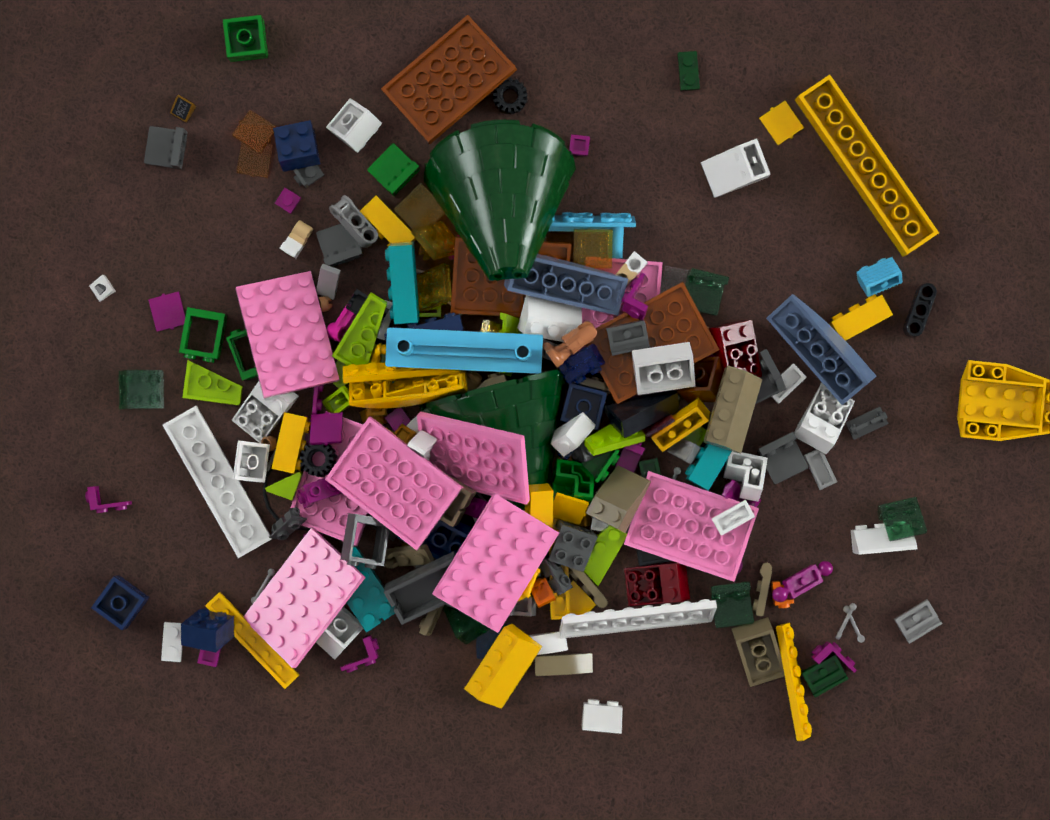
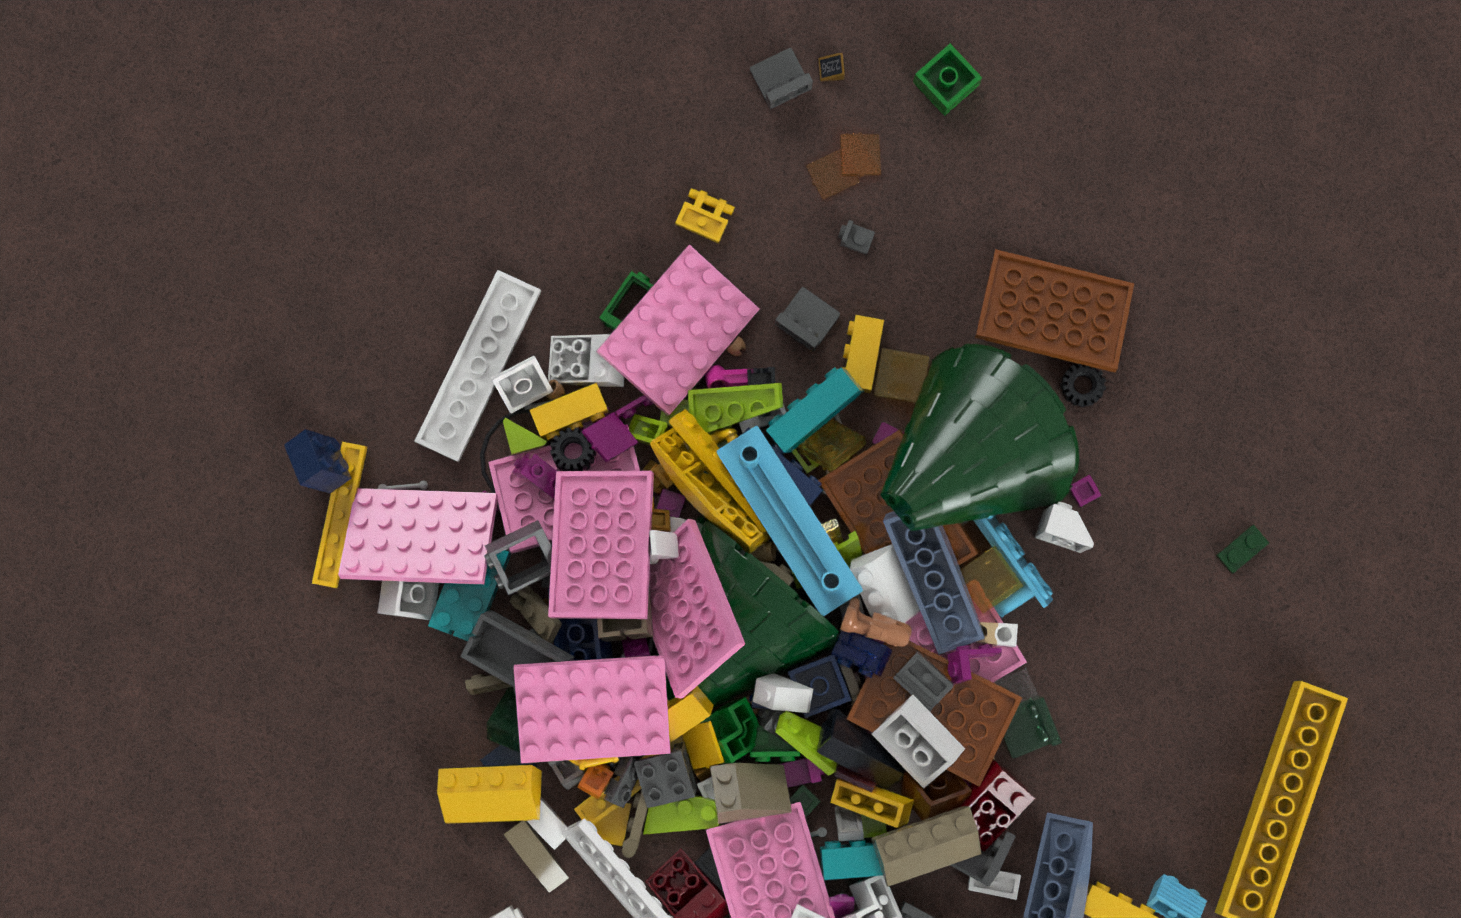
camera: 50 degrees right, 5 degrees down
(93, 498) = (374, 254): magenta bracket -> none
(102, 288) = (594, 114): white slope -> none
(120, 602) = (286, 354): dark blue brick -> none
(141, 389) = (519, 224): clear green bracket -> none
(167, 311) = (616, 195): magenta piece -> none
(171, 642) = (274, 438): white plate -> none
(191, 354) = (647, 250): green window -> none
(209, 386) = (569, 289): lime wing -> none
(209, 658) = (291, 484): magenta plate -> none
(226, 267) = (701, 221): none -> yellow plate
(282, 528) = (483, 467): dark grey hinge -> none
(287, 200) = (814, 236): magenta plate -> none
(296, 146) = (876, 205): dark blue brick -> none
(297, 239) = (781, 272): leg -> none
(328, 281) = (761, 333): light grey tile -> none
(350, 212) = (848, 306): light grey piece -> none
(354, 125) = (939, 248): white slope -> none
(371, 647) = (416, 642): magenta bracket -> none
(393, 169) = (922, 320): green bracket -> none
(435, 240) = (881, 411): clear yellow plate -> none
(594, 176) = (1064, 528): none -> white slope
(736, 168) = (1179, 670): white slope -> none
(781, 123) = (1260, 684): yellow piece -> none

